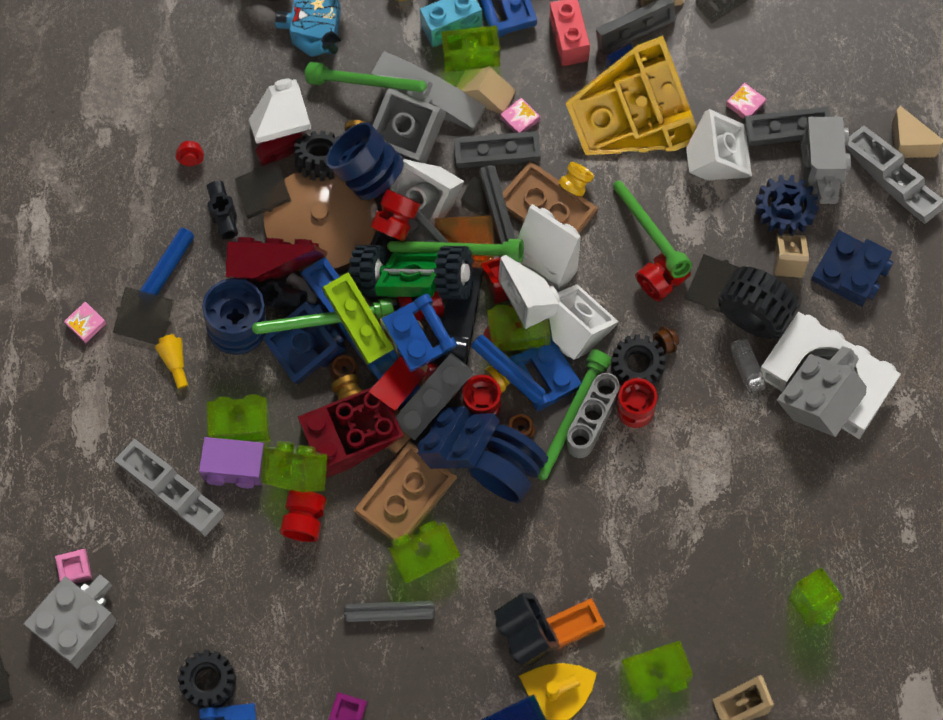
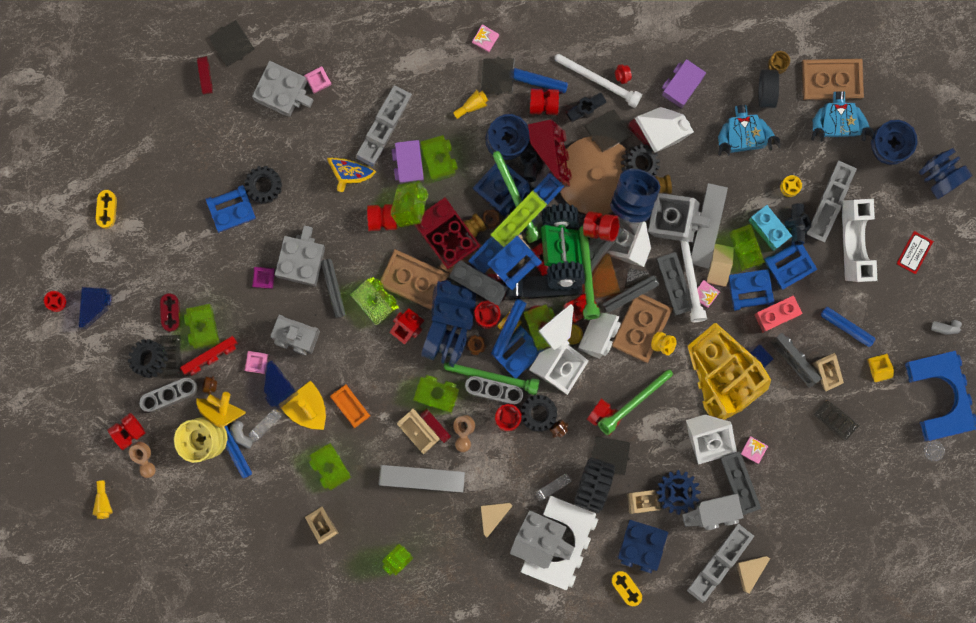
camera: 70 degrees right, 15 degrees up
(198, 260) = (544, 101): none -> red wheel
(224, 548) = (349, 172): none -> shield
(225, 81) = (683, 84): none -> medium lavender brick
(226, 149) = (631, 97): none -> white piece
(318, 74) = (704, 146): bright green piece -> none
(334, 646) = (300, 258): none -> light grey hinge
(397, 384) = (479, 255): red sticker -> none
(447, 677) = (294, 334): none -> light grey hinge
(471, 513) = (407, 326): none -> red brick
(518, 60) = (749, 283): none -> blue plate
(526, 629) = (338, 378): black brick -> none
(544, 126) = (697, 313): none -> white piece
(576, 512) = (424, 396): none -> clear neon green brick
(626, 508) = (436, 427): none -> dark red beam
(629, 533) = (418, 431): none -> tan hinge
(658, 476) = (463, 443): none -> medium nougat plate
(700, 543) = (421, 478): none -> light grey slope
(775, 456) = (493, 515): none -> tan slope
(906, 295) = (630, 585): none -> yellow beam

